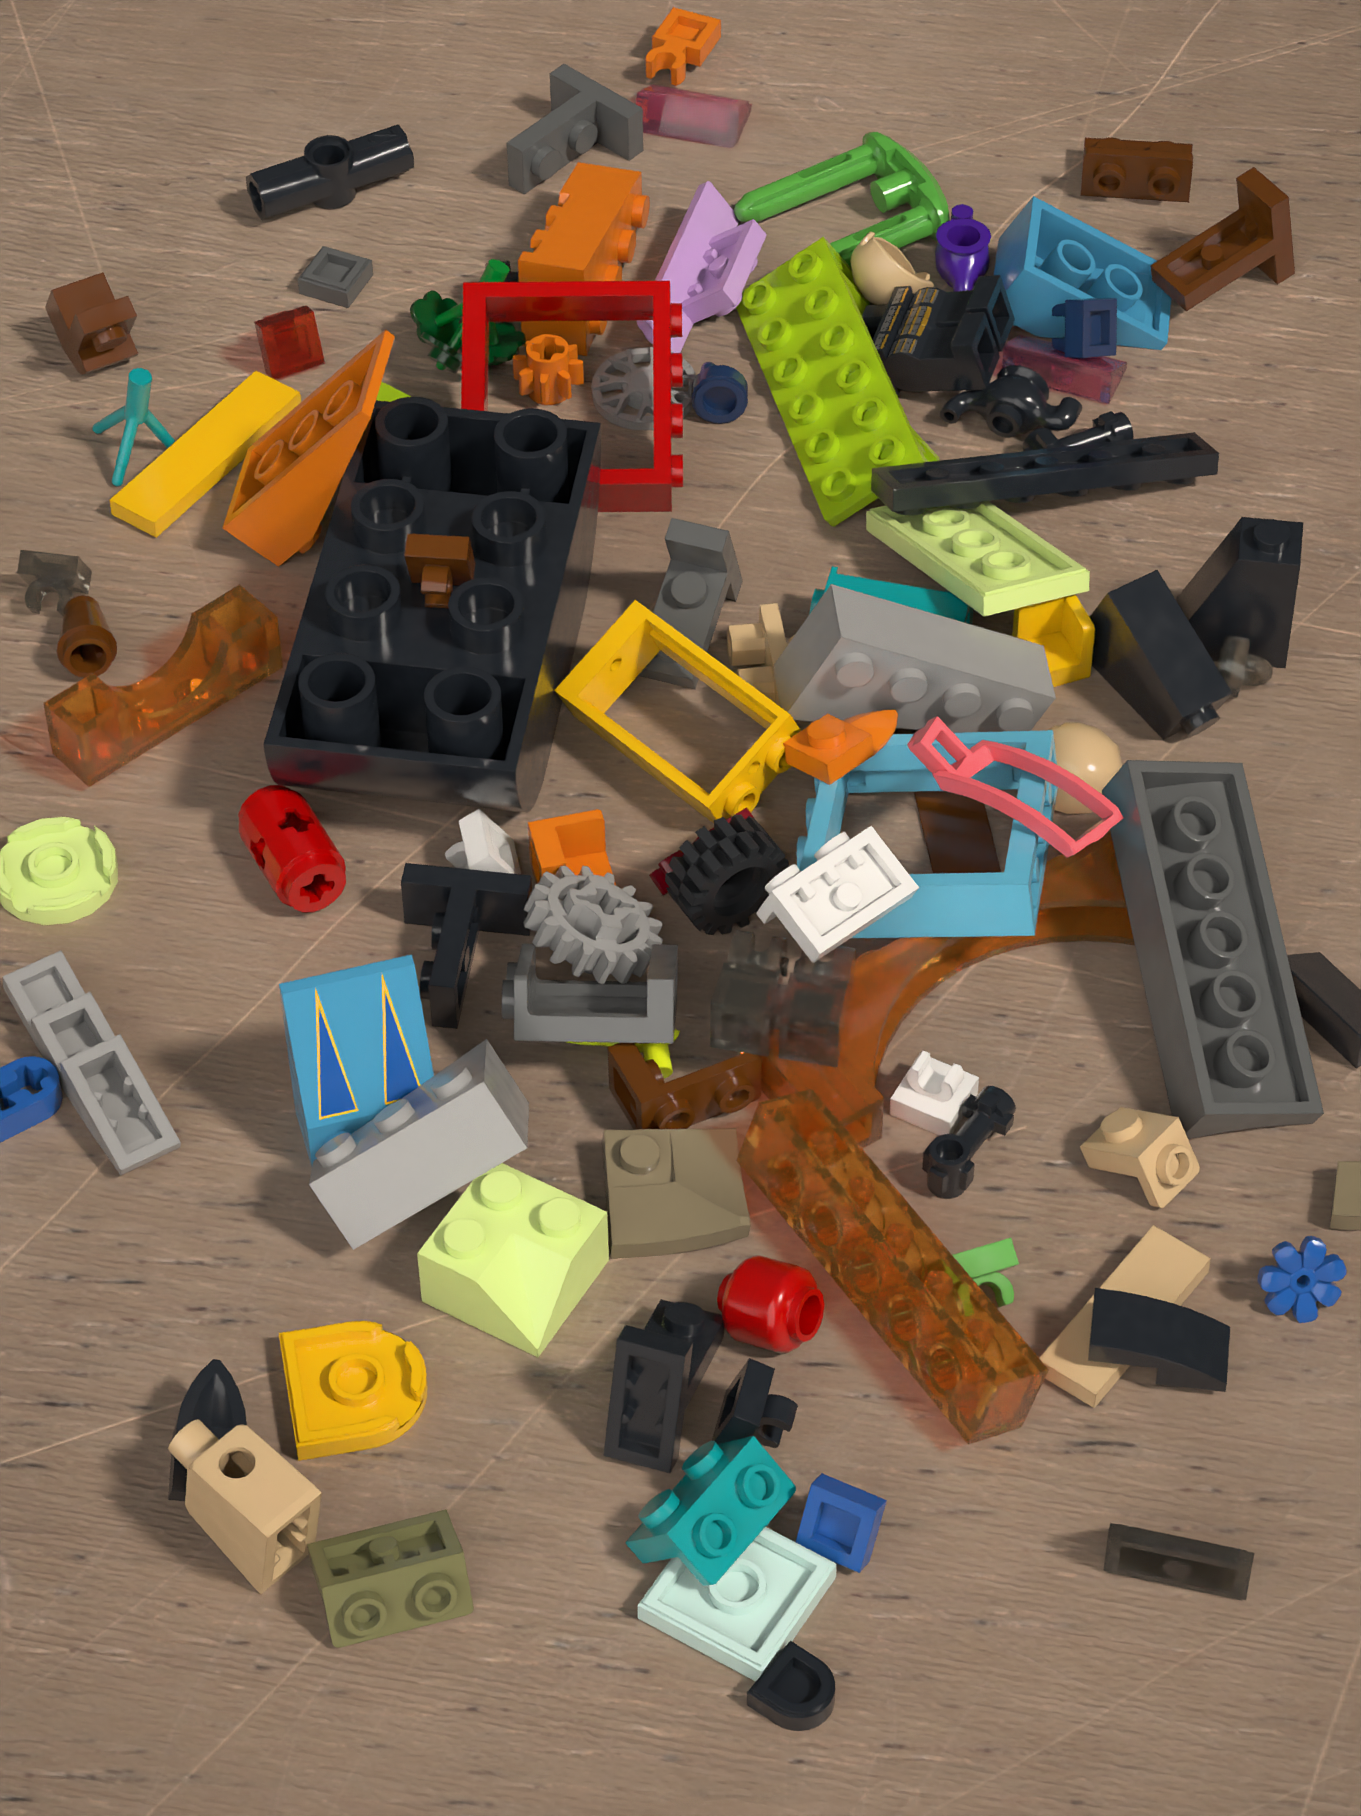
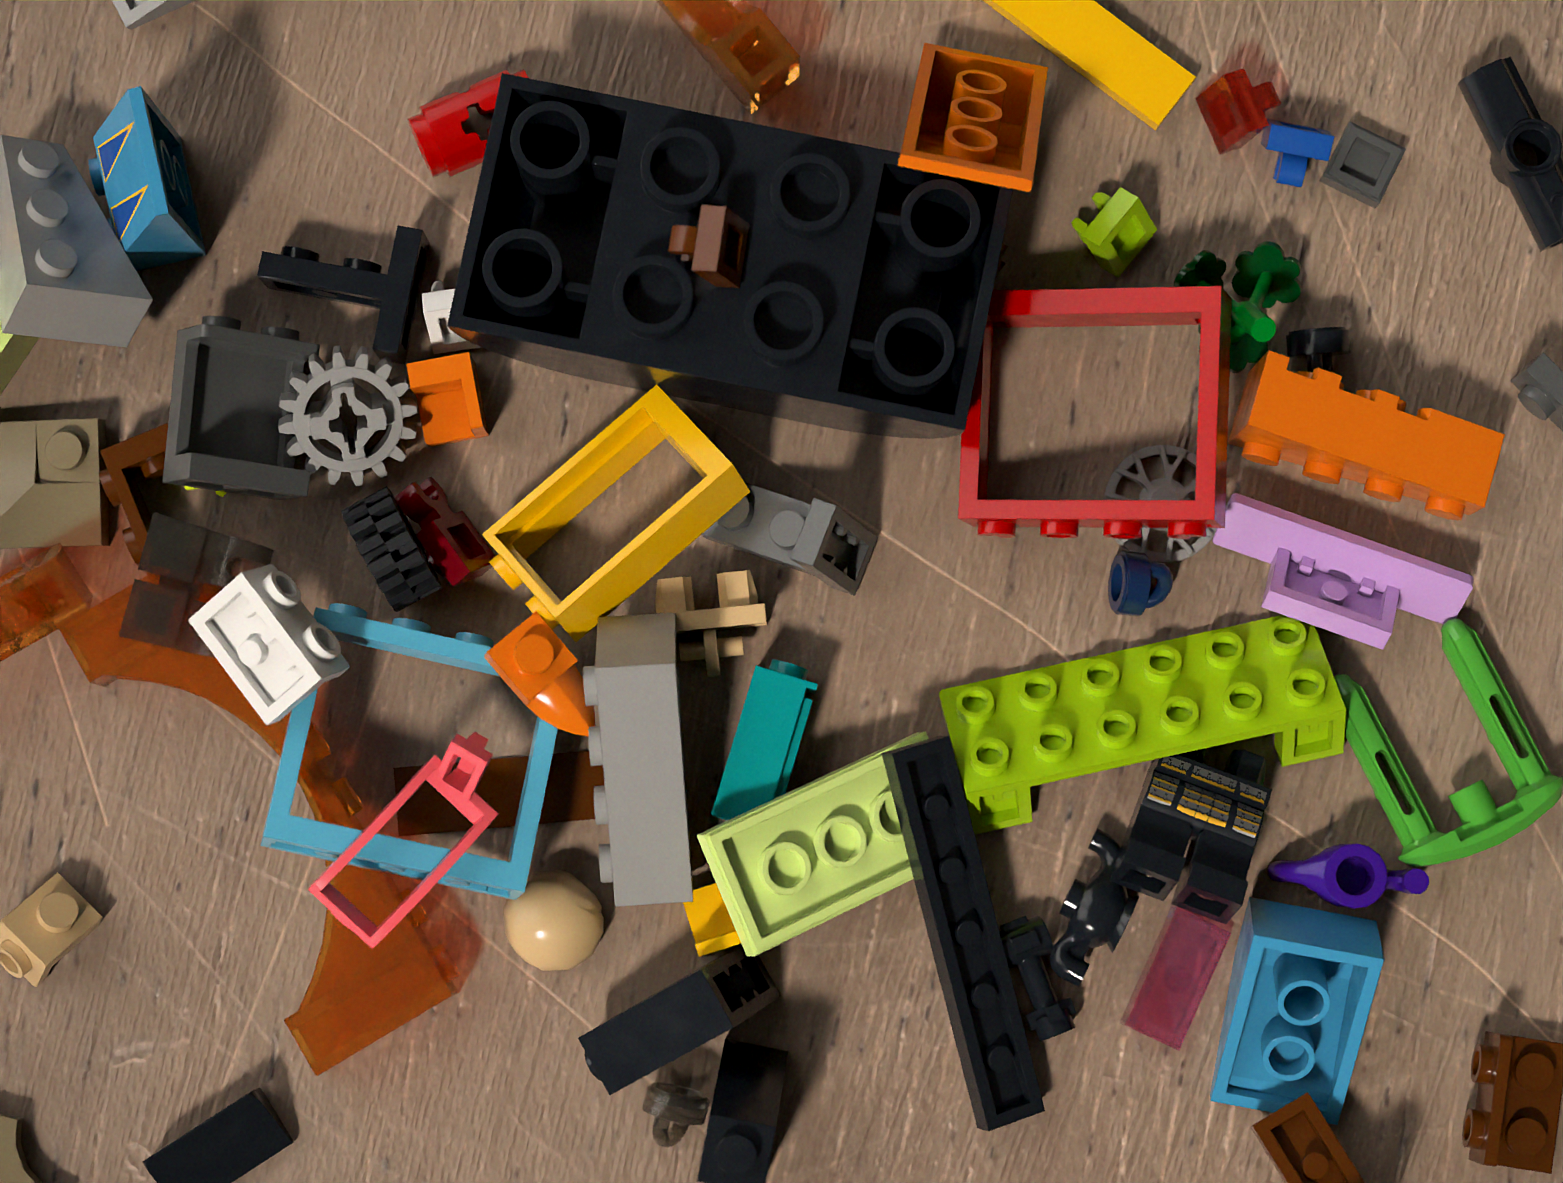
camera: 90 degrees right, 35 degrees up
(329, 303) = (1294, 146): none -> blue tile
(548, 369) = (1161, 403): orange gear -> none
(881, 267) = (1315, 787): tan hair -> none
(933, 1095) = (138, 739): white tile -> none
(949, 1155) = (46, 744): black bar -> none
(1088, 327) = (1197, 1004): dark blue tile -> none
(1211, 948) = (253, 1025): dark grey arch -> none

